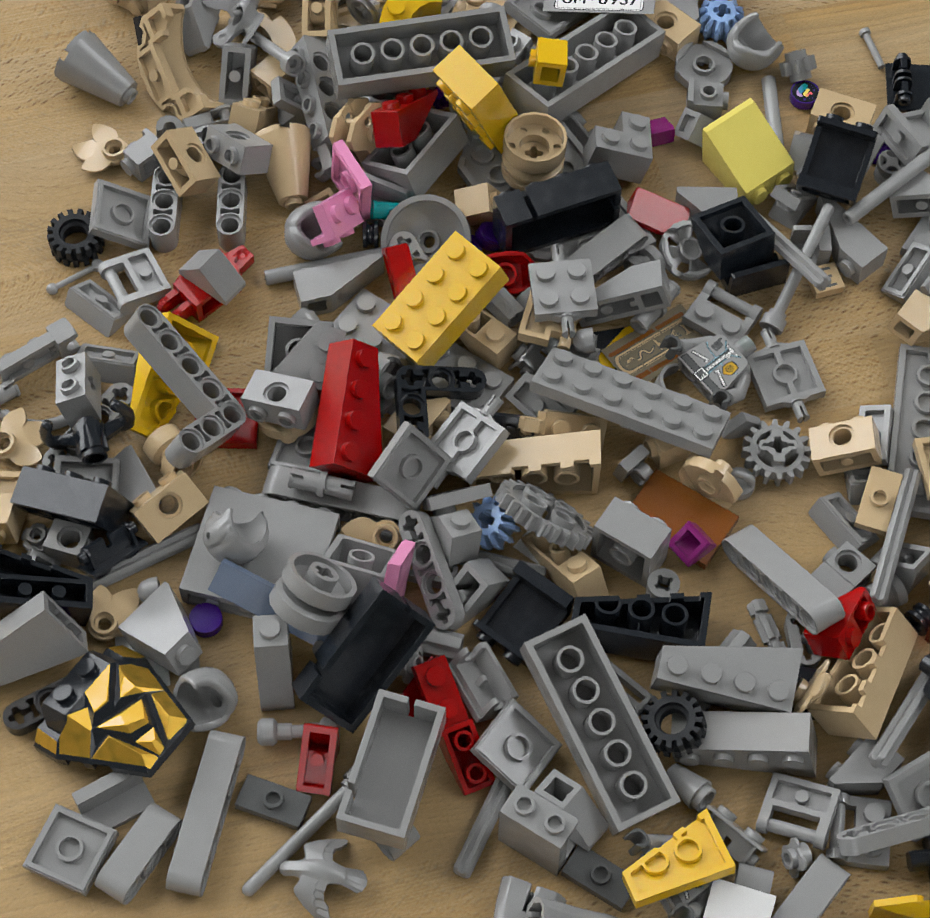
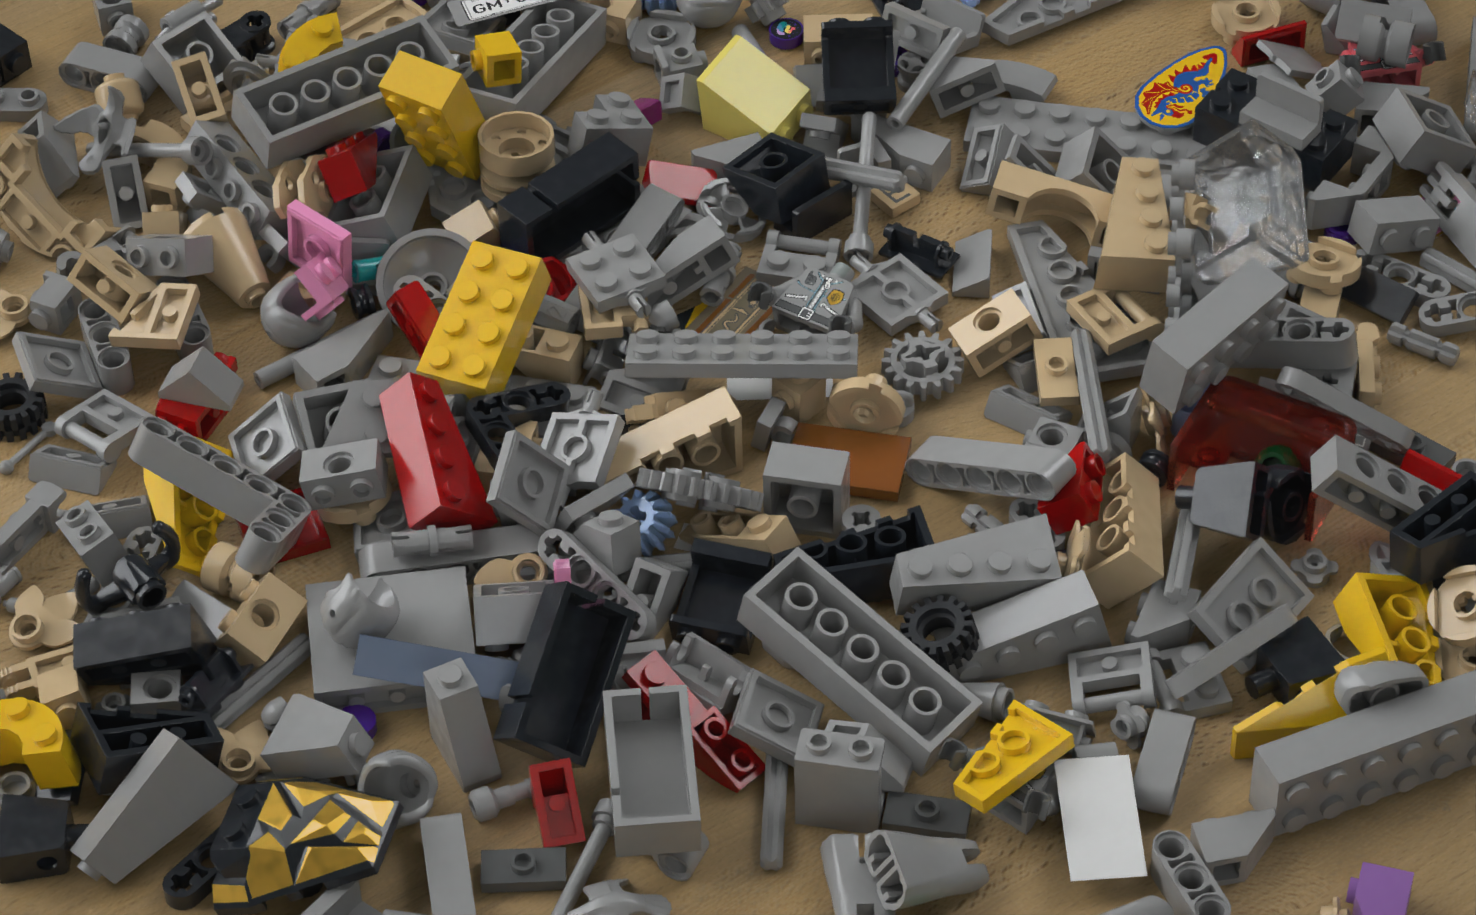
camera: 20 degrees left, 15 degrees down
(207, 205) = (159, 320): none -> tan wing
(241, 344) = (269, 438): none -> light grey plate
(312, 593) = (481, 628): light grey wheel -> none
(691, 543) = (873, 475): magenta slope -> none
(740, 425) = (871, 354): light grey tile -> none
(819, 341) = (927, 253): none -> black hinge
(858, 369) = (973, 267): none -> light grey slope

